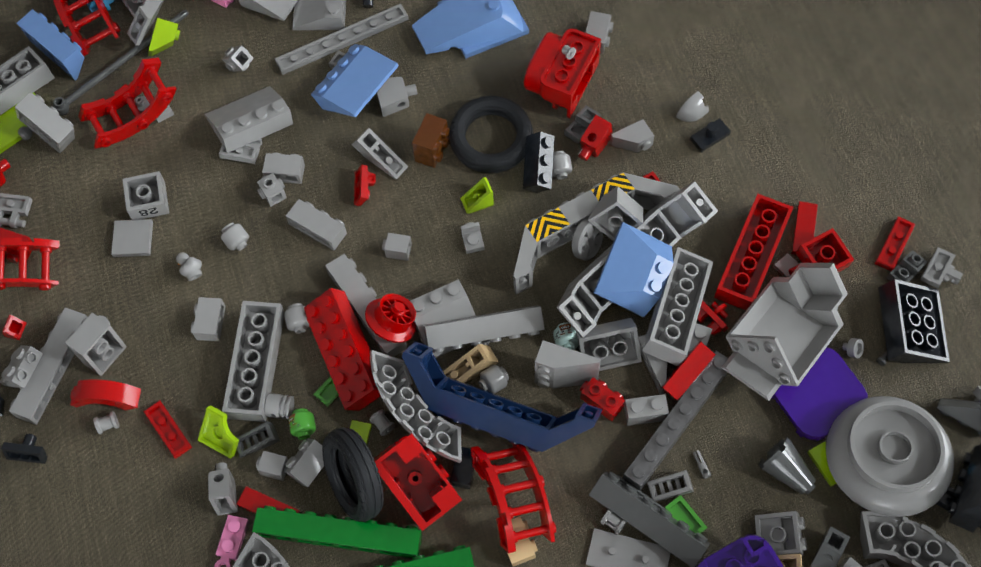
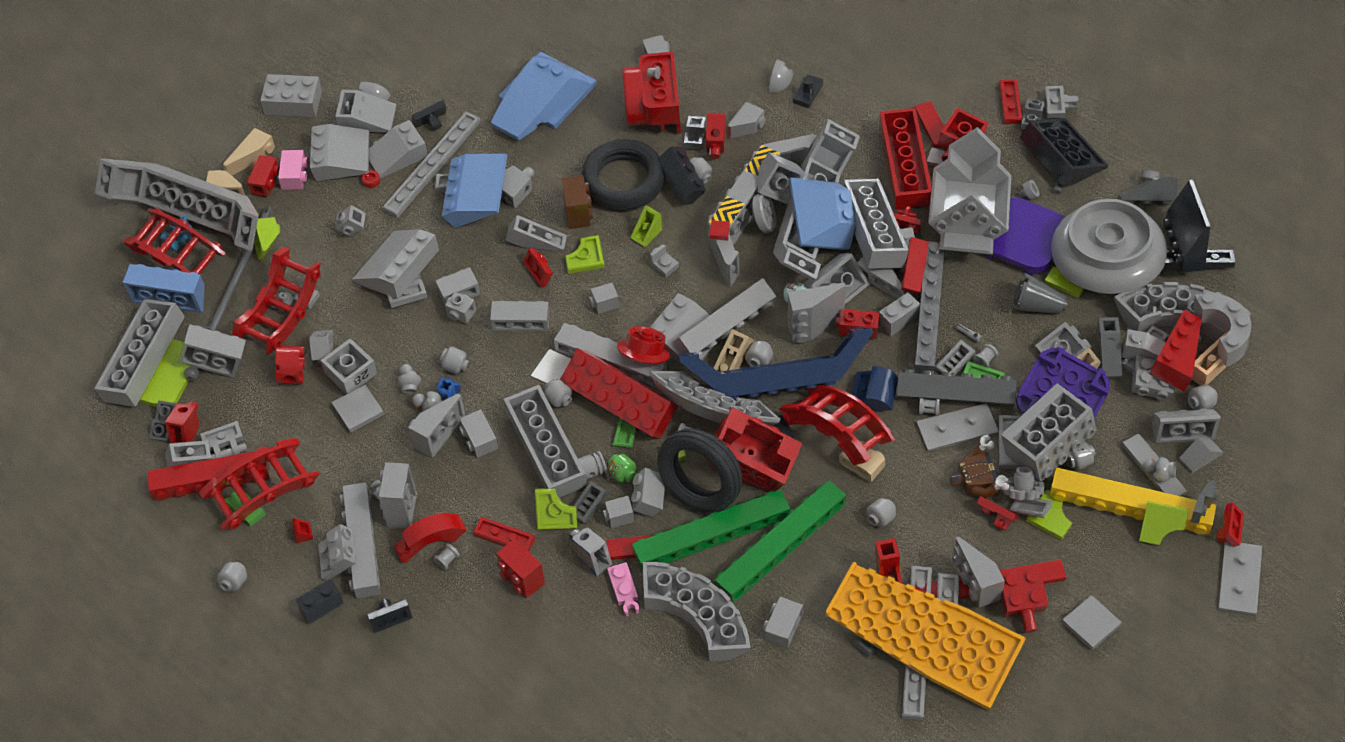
camera: 30 degrees left, 10 degrees down
(100, 167) = (289, 364): none -> red brick
(141, 161) = (321, 344): none -> light grey slope
(151, 474) = (520, 568): none -> red brick
(176, 293) = (436, 425): none -> light grey slope
(186, 235) = (408, 380): none -> light grey animal
(212, 263) = (447, 388): none -> blue piece
(284, 27) = (371, 179): none -> red tile
(312, 287) = (551, 366): none -> white sticker
(411, 197) = (586, 257): none -> lime tile
(528, 239) = (719, 230): none -> red tile
(574, 475) = (876, 388): none -> dark blue brick
(700, 499) = (986, 355): none -> light grey bush

